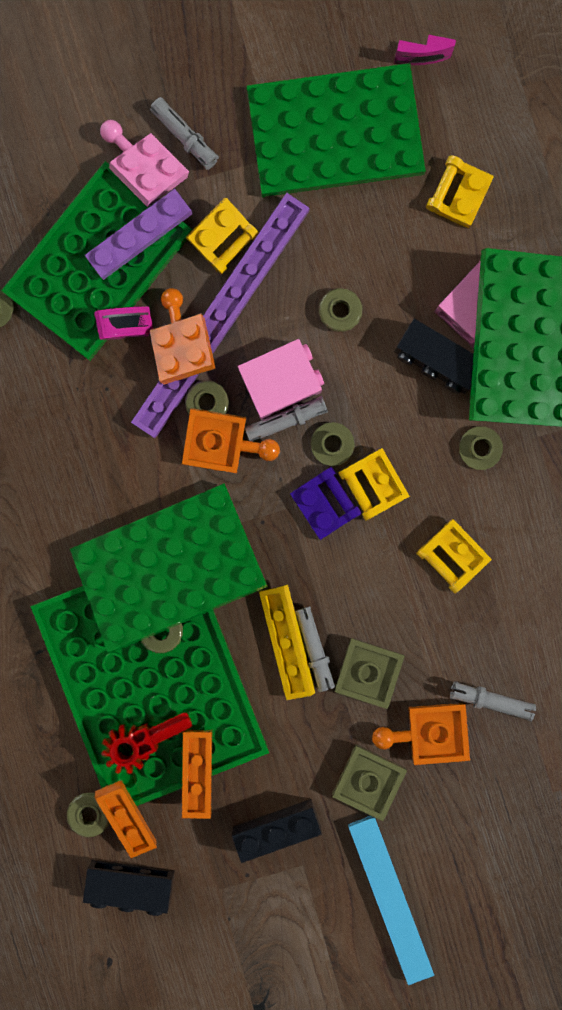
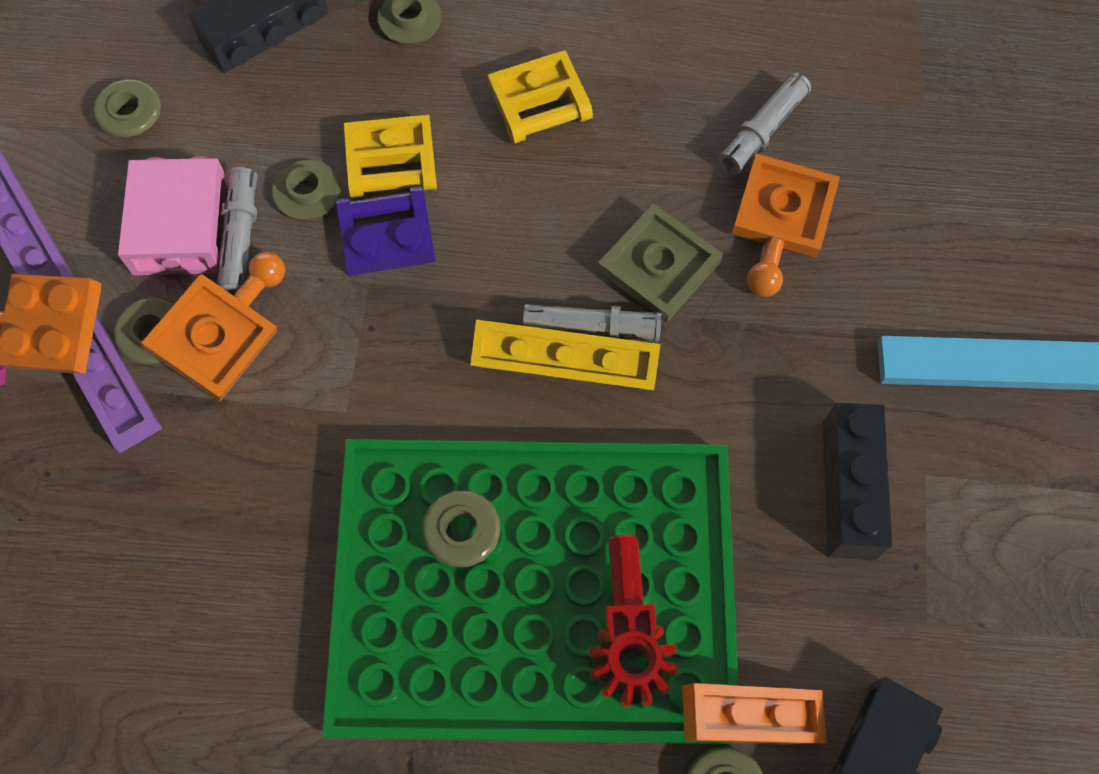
camera: 65 degrees left, 20 degrees down
(167, 568) = (366, 483): green plate -> none
(197, 774) = (720, 562): orange plate -> none
(369, 782) = (825, 323): olive plate -> none

